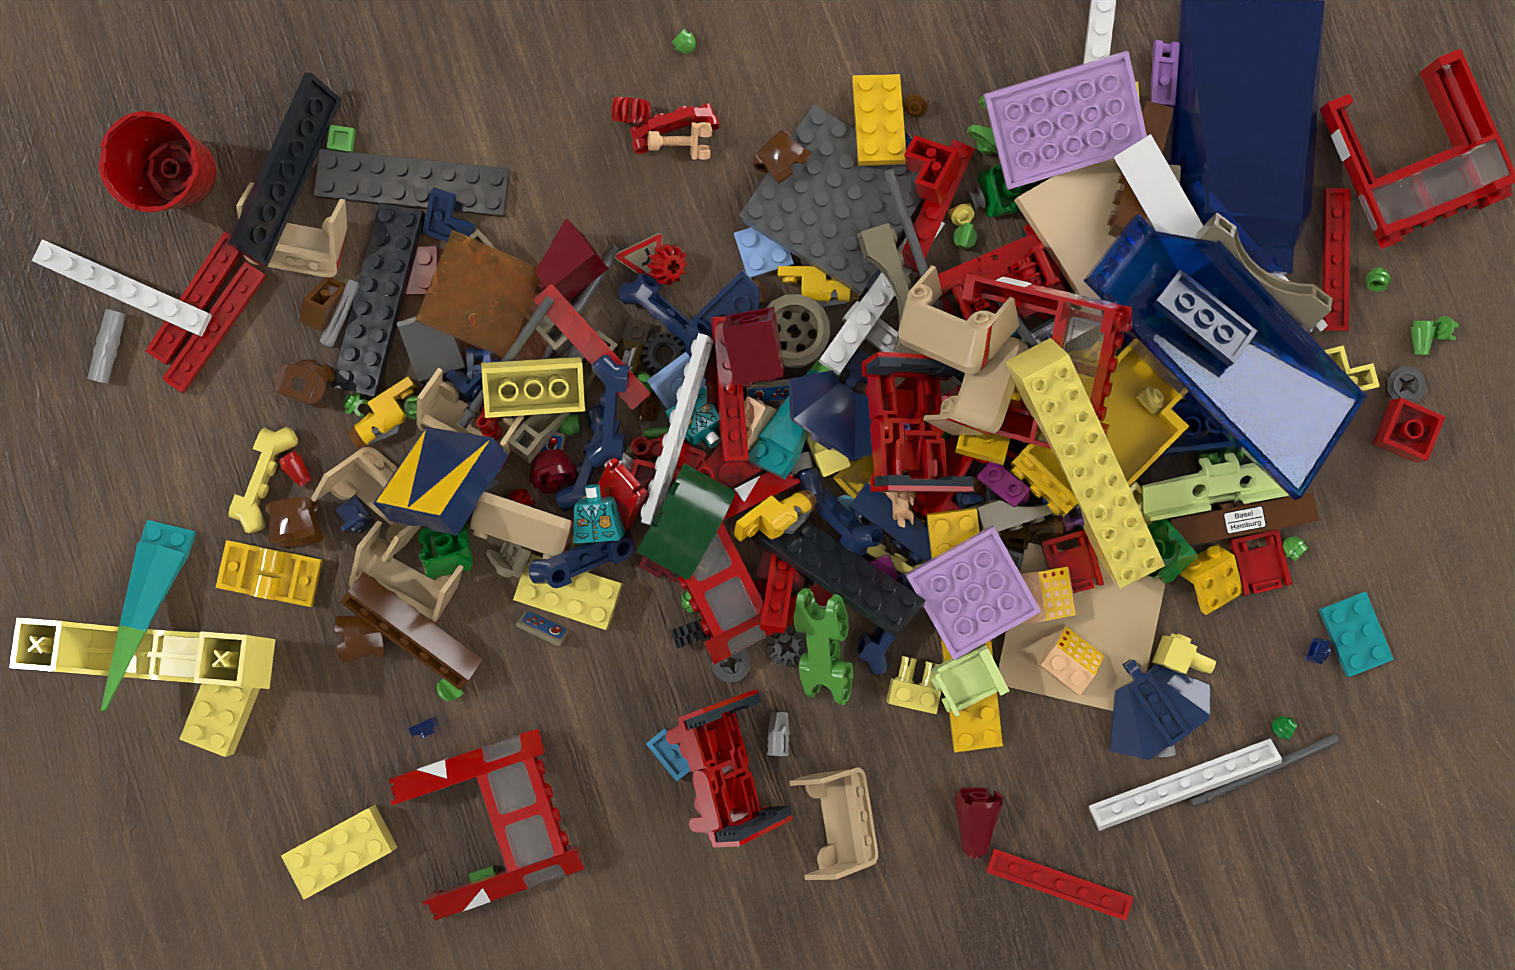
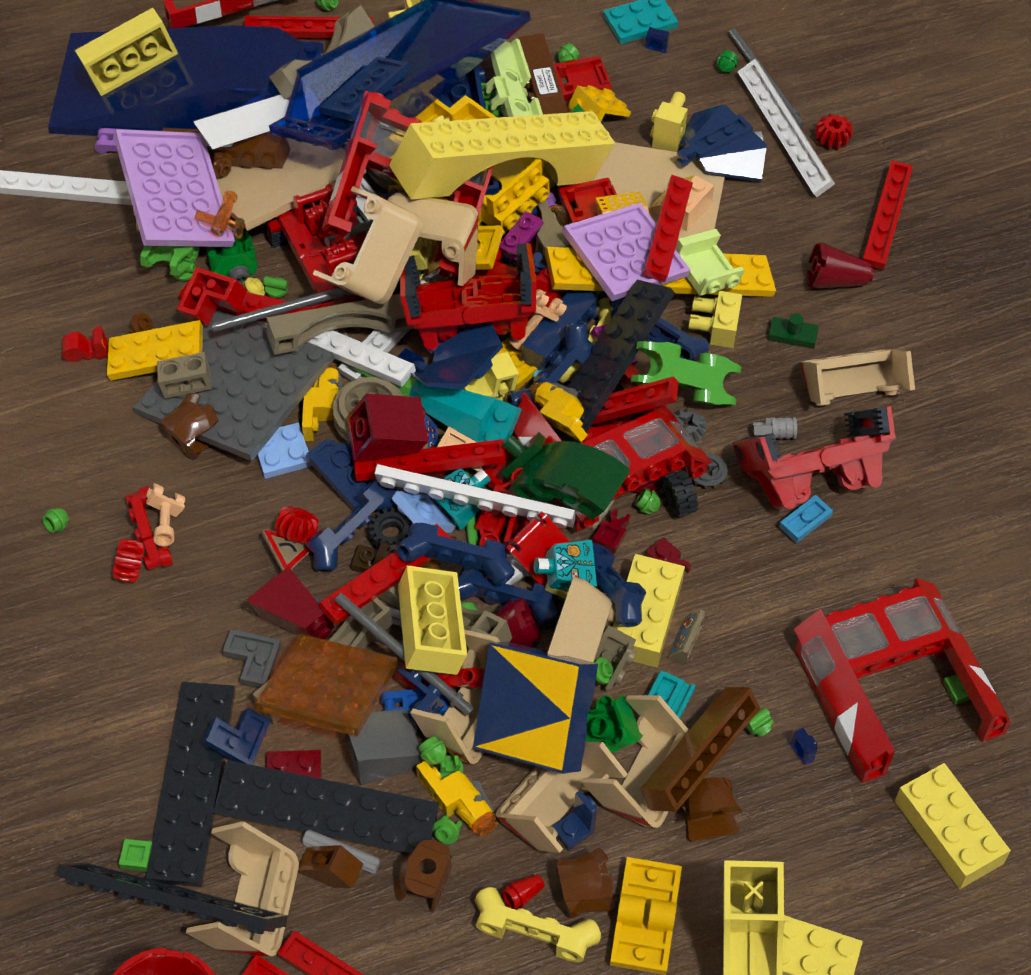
camera: 90 degrees left, 30 degrees down
(414, 388) = (433, 750): none -> bright green plate
(475, 605) = (673, 691): none -> teal plate
(496, 546) = (604, 671): none -> bright green plate
(536, 236) = (258, 652): none -> dark grey plate
(633, 614) = (667, 552): none -> dark red plate
(730, 478) = (520, 453): none -> dark green tile
(834, 148) = (184, 375): none -> dark tan brick
(888, 52) = (77, 346): none -> red leg
(902, 765) = (793, 331): none -> dark green tile
(1006, 639) = (667, 228): none -> red plate
(1026, 173) = (222, 218): none -> clear orange piece
(1110, 171) = (221, 165): none -> reddish brown plate
(1170, 833) = (833, 131): none -> red gear
(1265, 58) = (126, 51): none -> light yellow brick

